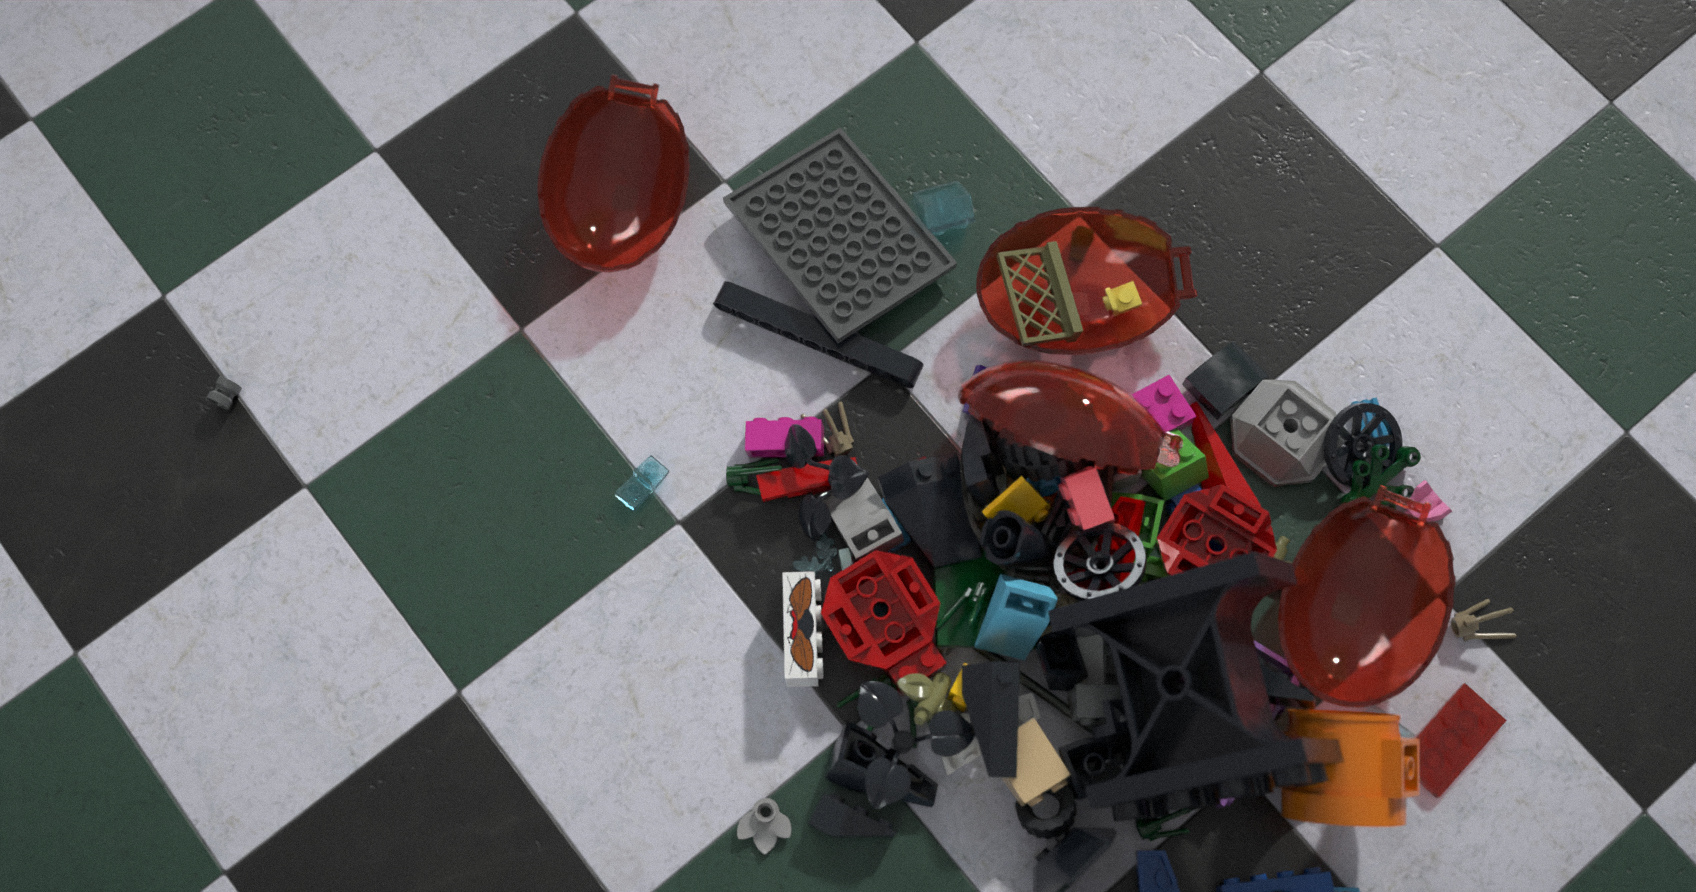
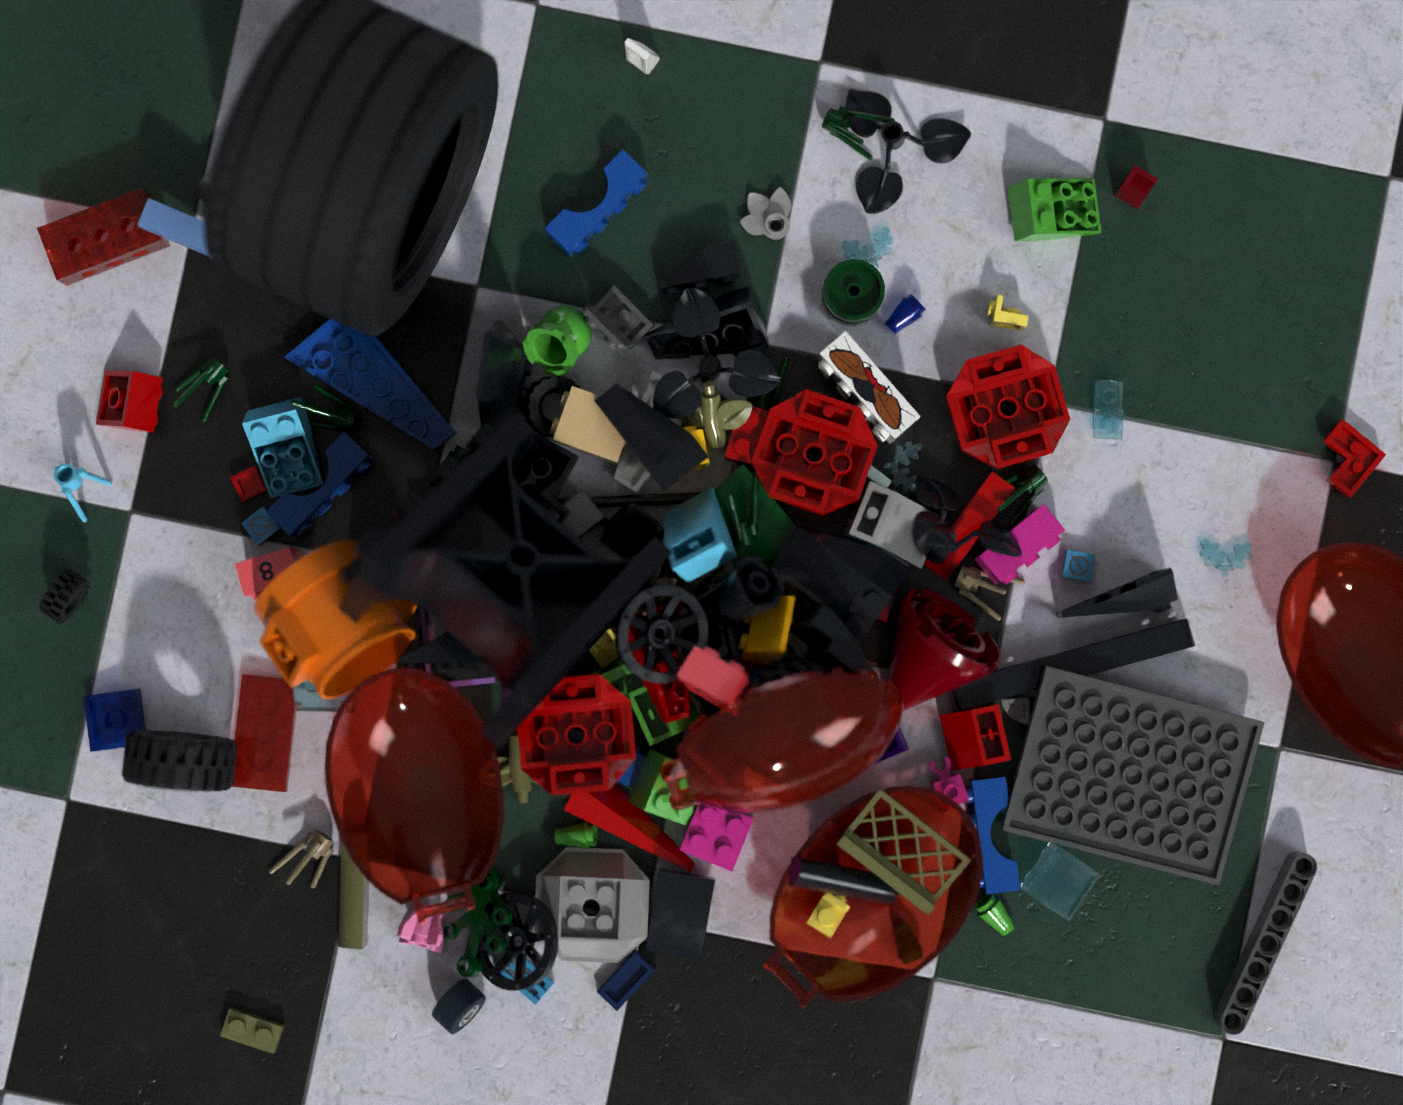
camera: 140 degrees right, 15 degrees up
(483, 622) = (1135, 186): none -> dark red panel
(504, 316) = (1358, 456): none -> red plate
(554, 653) = (1053, 209): none -> bright green slope
(625, 841) = (882, 189): none -> black plant
(647, 317) = (1216, 559): none -> clear light blue animal
(654, 599) = (1008, 319): none -> light yellow bracket
(655, 849) = (838, 124): none -> dark green plant
(709, 508) = (1029, 386): none -> red piece
(721, 735) = (879, 250): none -> clear light blue animal
(725, 665) = (905, 313): none -> clear blue cone
(730, 342) = (1145, 593): none -> black wedge
(747, 694) = (862, 278): none -> dark green wheel
(755, 395) = (1078, 565): none -> dark azure tile
(832, 82) = (1265, 957): none -> dark grey beam
(878, 333) = (1017, 708): none -> light grey tile
(902, 408) = (937, 648): none -> dark red cone
(924, 335) = (975, 737): none -> red slope
(945, 834) = (618, 319): none -> dark grey bracket
(948, 291) = (988, 798): none -> blue arch
(969, 320) = (947, 783): none -> dark pink brick
(1003, 853) = (558, 340): none -> bright green tile
(1004, 217) = (994, 913): none -> bright green cone
(1101, 312) = (840, 881): none -> black brick
(1262, 486) = (577, 835): none -> bright green cone
(1297, 366) = (626, 980): none -> dark blue tile
(1365, 852) = (260, 571): none -> coral brick
(1436, 434) = (458, 1006): none -> black wheel
(1472, 556) = (352, 904): none -> olive brick
(1541, 760) = (179, 760): none -> black tyre
(1567, 840) = (112, 718): none -> clear blue plate
(1604, 534) = (252, 1030): none -> olive plate

